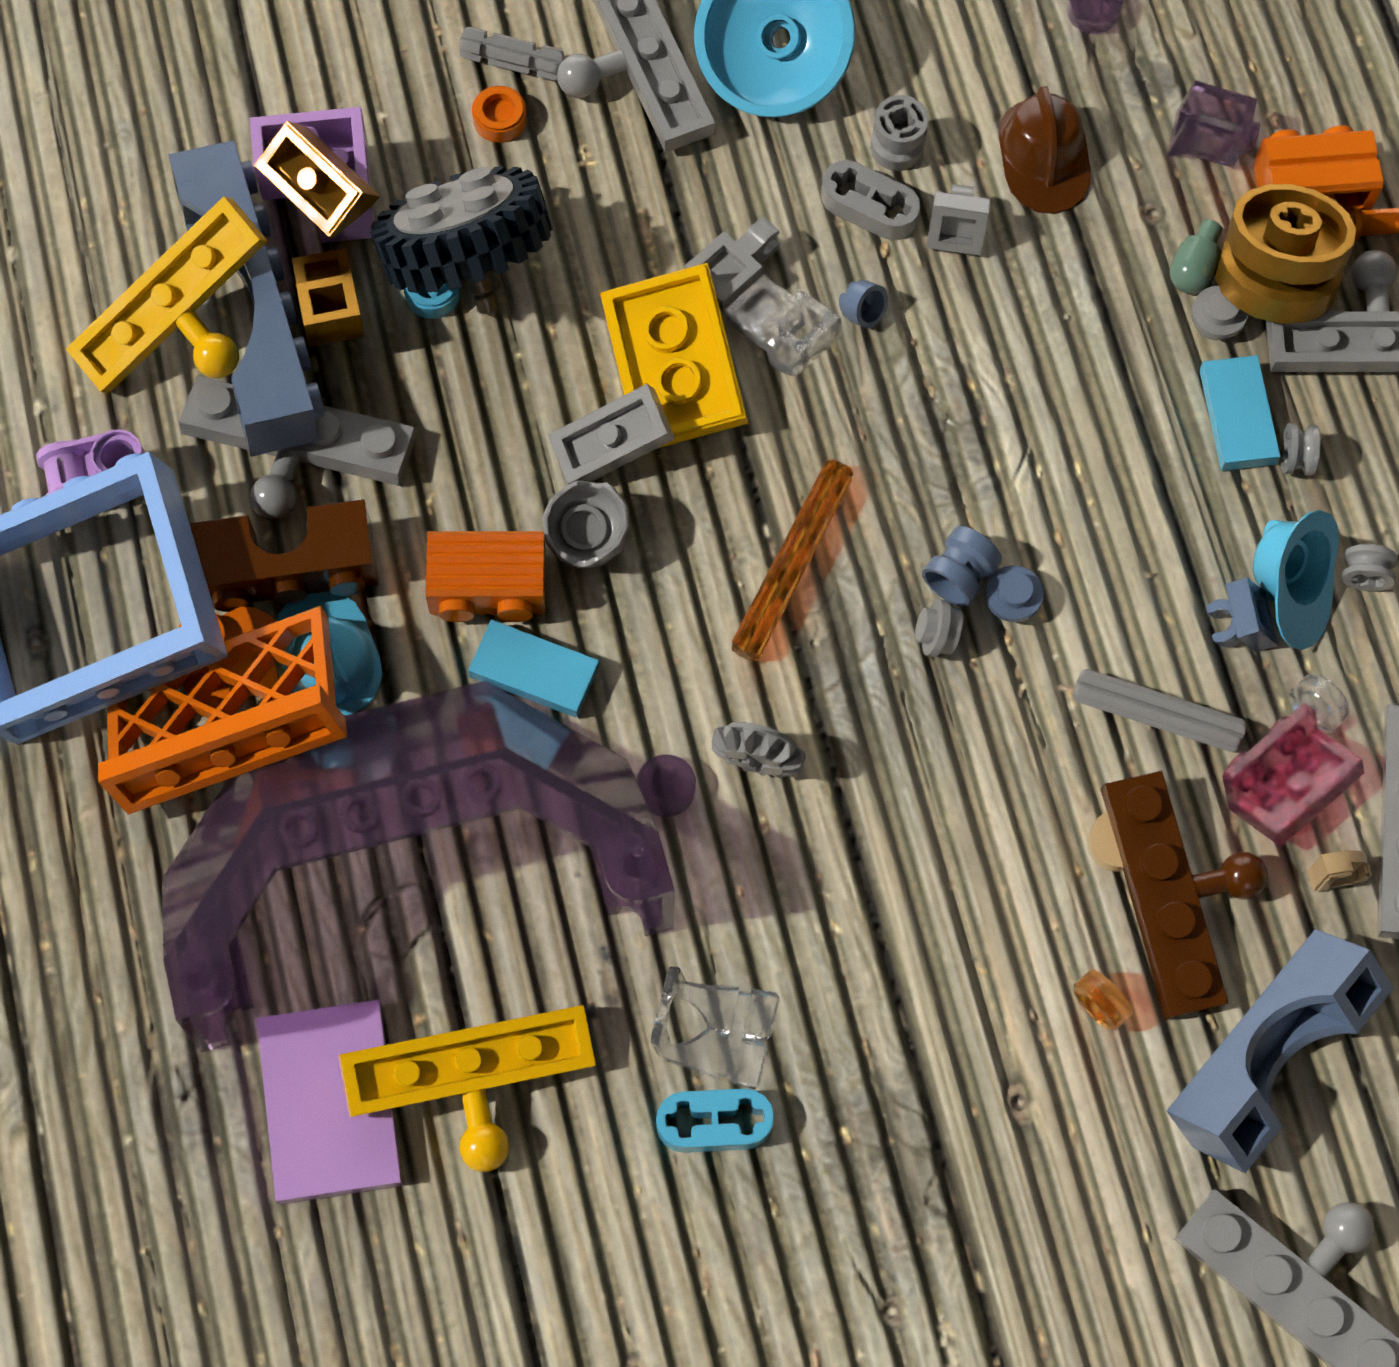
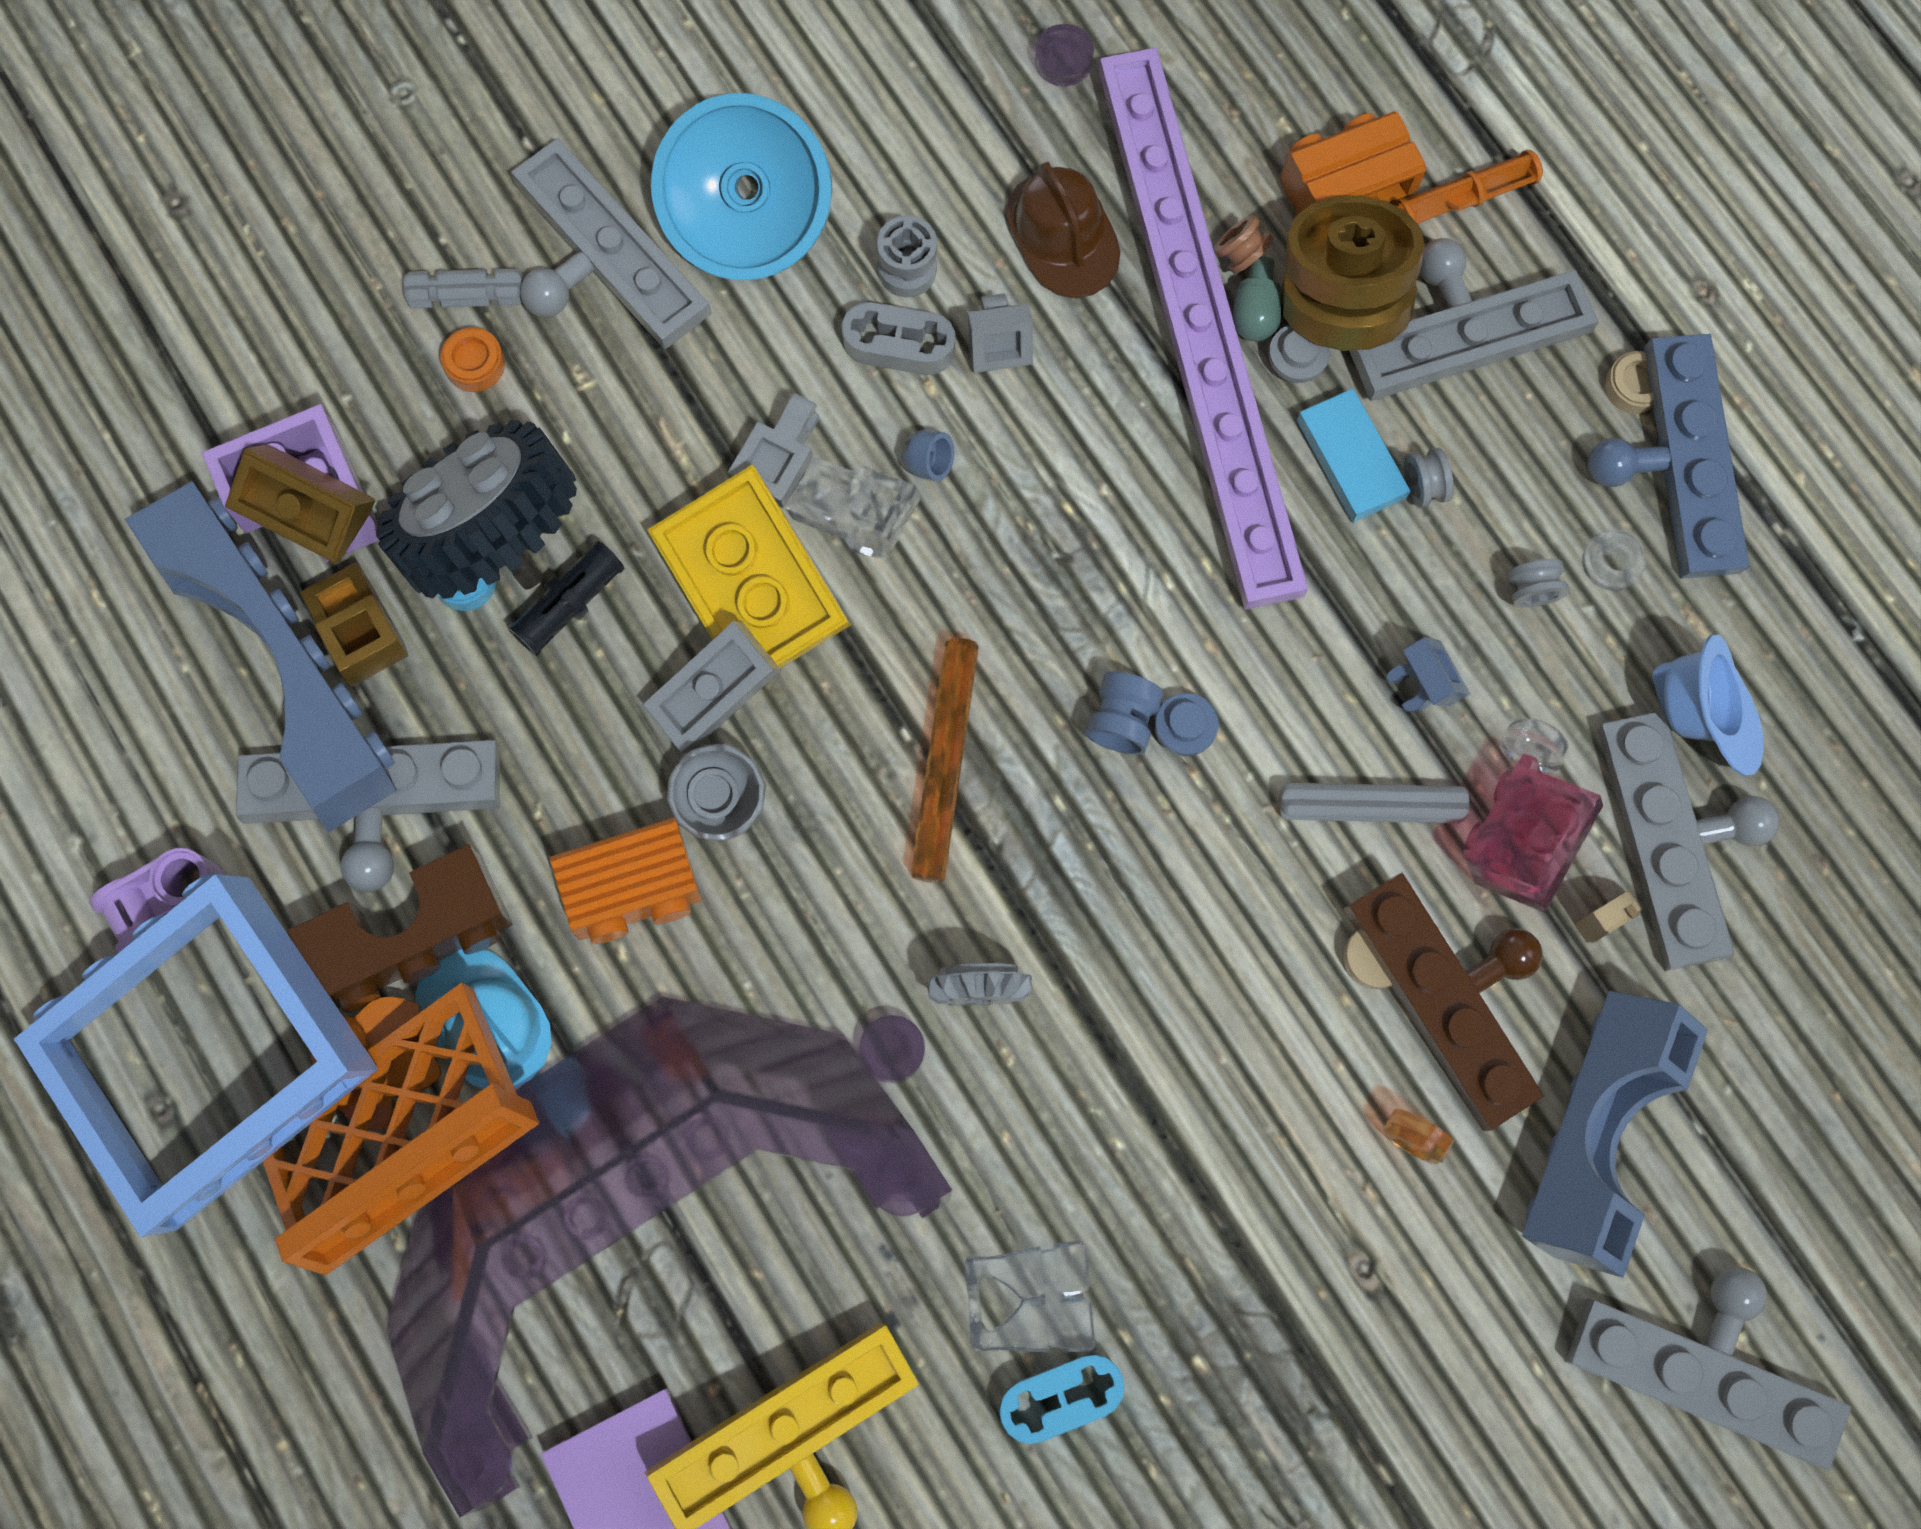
camera: 20 degrees left, 5 degrees up
(167, 300) = (179, 684): yellow plate -> none
(512, 329) = (566, 598): none -> black pin
(534, 668) = (710, 966): medium azure tile -> none
(939, 628) = (1122, 788): light grey plate -> none
(1138, 270) = (1202, 331): none -> lavender plate
(1199, 205) = (1243, 244): none -> nougat bush
(1214, 125) = (1232, 150): window -> none
(1297, 574) = (1468, 614): medium azure piece -> none

